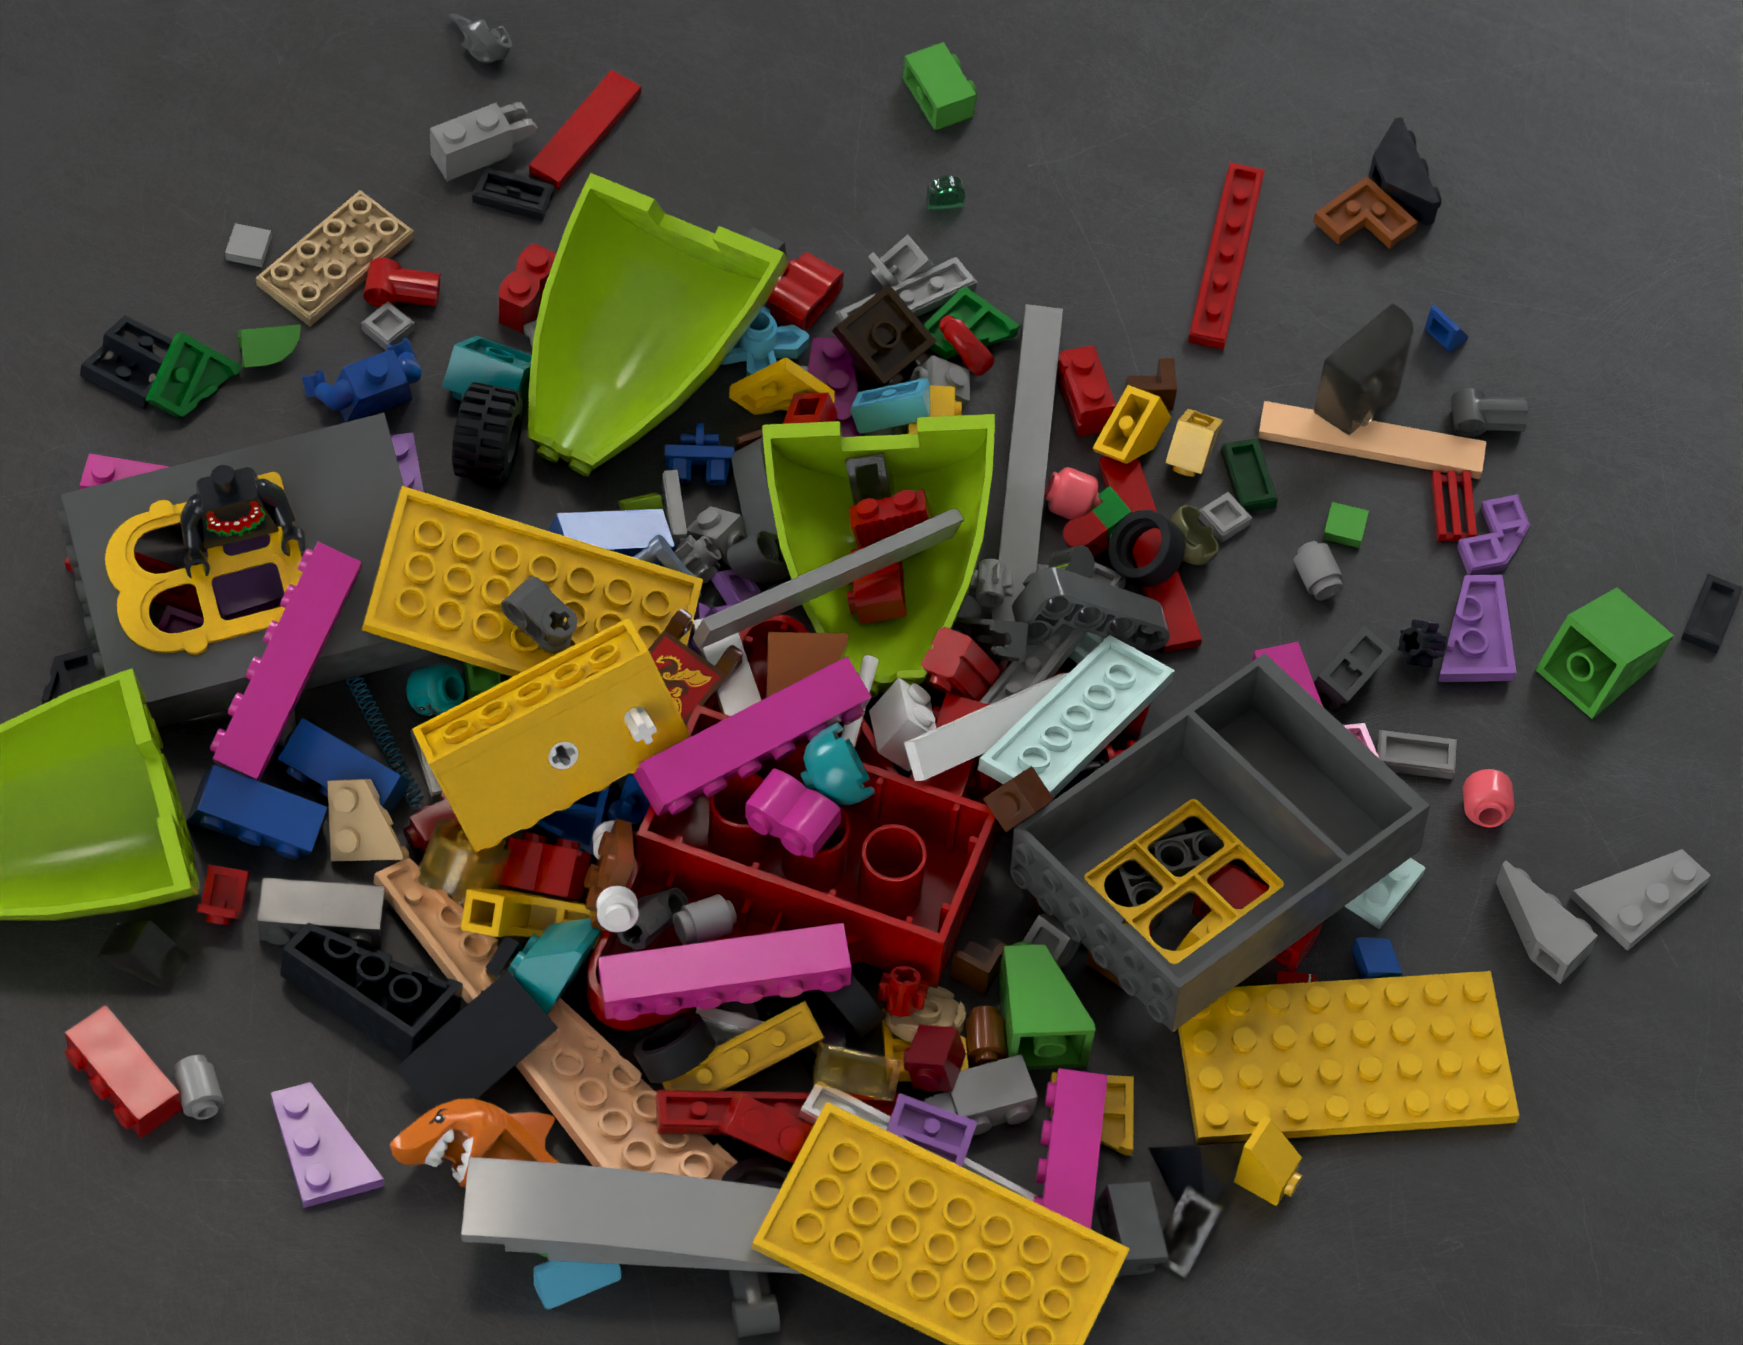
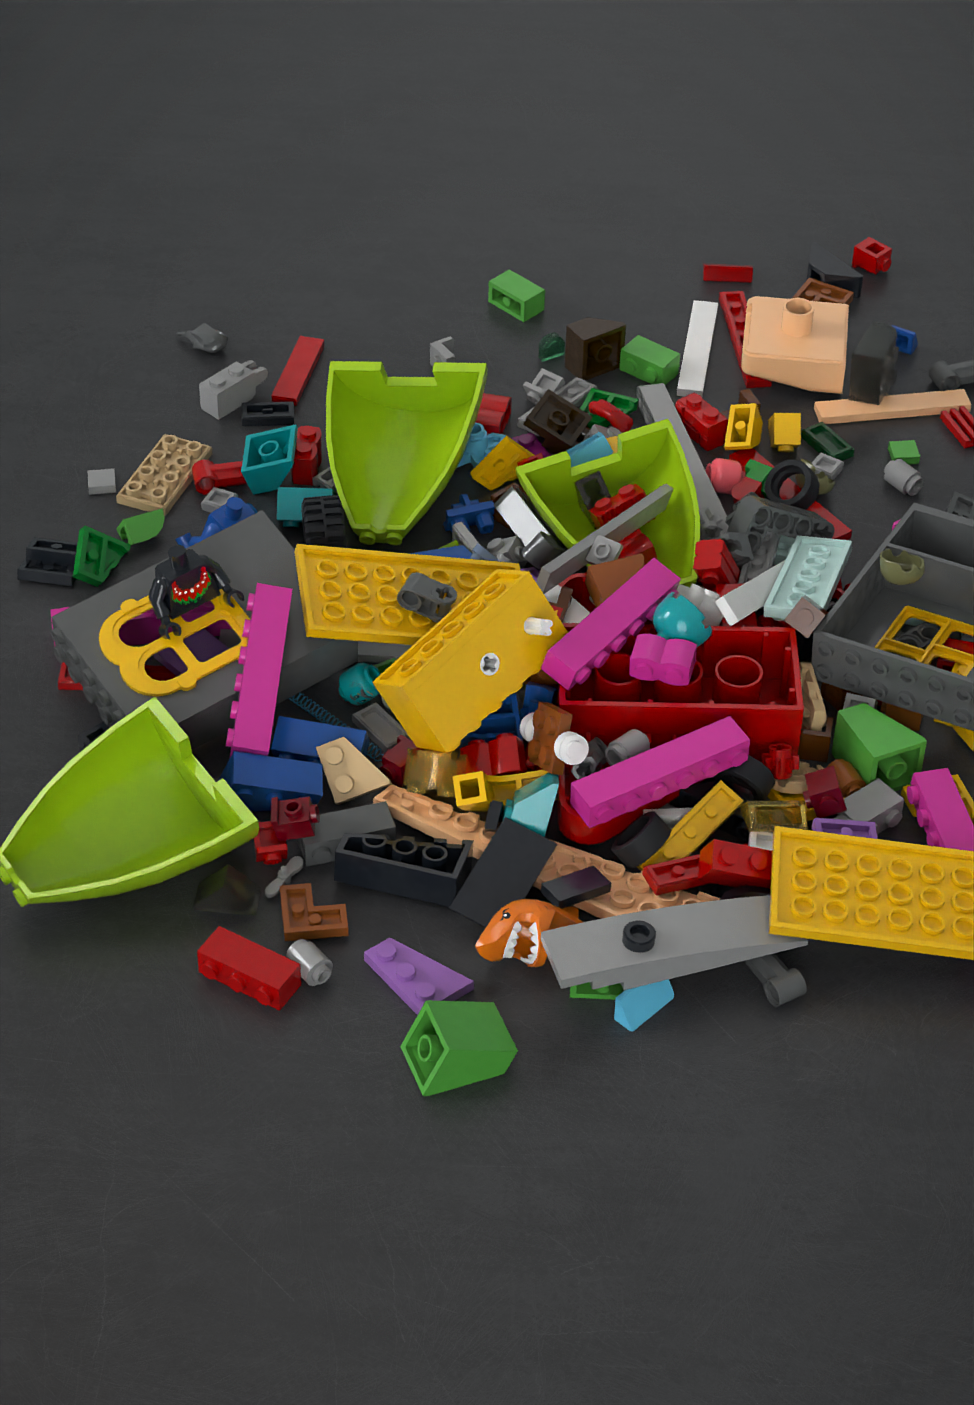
camera: 15 degrees left, 15 degrees down
(220, 1024) = (308, 921): none -> dark orange plate
(224, 948) = (284, 876): none -> light grey piece
(254, 880) = (294, 818): none -> dark red brick
(322, 1265) = (457, 1045): none -> bright green slope
(469, 283) = (268, 458): none -> teal slope
(557, 1094) = (576, 887): none -> black tile
(581, 1205) = (639, 936): none -> black tile
(785, 160) = (442, 351): none -> light grey bracket
(807, 612) = (603, 550): none -> light grey bracket
(988, 906) = (814, 710): none -> tan wing
(995, 220) = (593, 347): none -> dark brown slope
(1067, 261) = (649, 361): none -> bright green brick
(1150, 254) = (697, 348): none -> white tile
(1174, 766) = (902, 568): none -> olive hair
(1262, 125) = (727, 273): none -> red slope
(1277, 300) = (796, 342): none -> light nougat piece
(1479, 162) = (872, 256): none -> red brick

